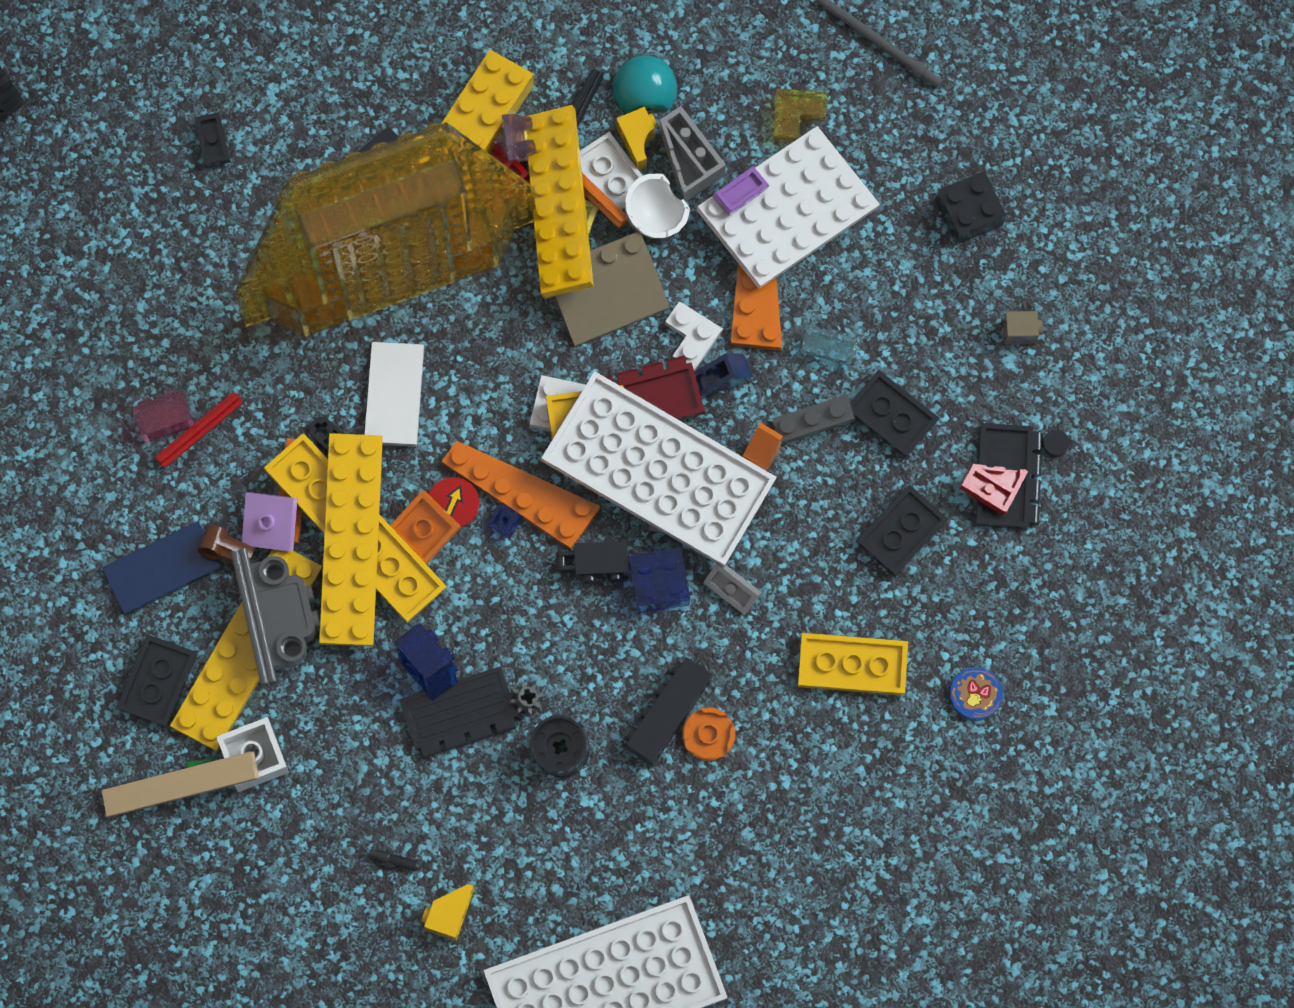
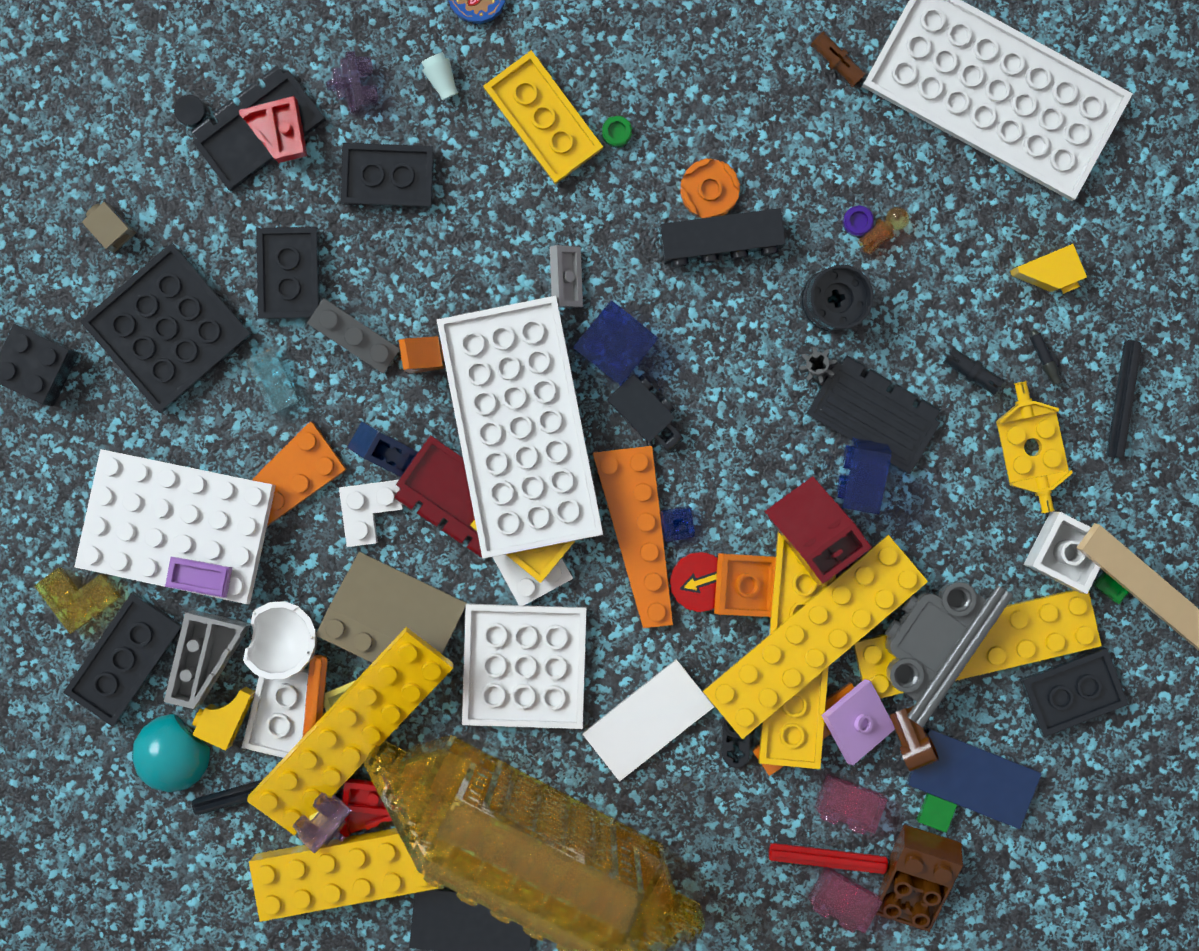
camera: 125 degrees left, 15 degrees up
(133, 475) = (919, 877): none -> reddish brown slope
(162, 523) = (936, 812): none -> green tile
(221, 472) = (850, 804): none -> clear pink brick
(318, 887) = (1124, 399): none -> black axle
(328, 779) = (1049, 465): none -> yellow plate
(418, 597) = (817, 530): none -> dark red slope
(429, 801) = (973, 371): none -> black pin
(501, 346) = (524, 666): none -> white plate
(577, 839) = (896, 219): none -> clear orange pin
(599, 814) = (858, 221): none -> dark purple tile
(731, 107) = (123, 659): none -> black plate
(736, 894) = (838, 59): none -> reddish brown pin
(801, 706) = (616, 131): none -> green tile
(923, 309) = (166, 328): none -> black plate
(940, 621) = (440, 74): none -> light aqua cone
(972, 556) = (352, 70): none -> clear purple hips

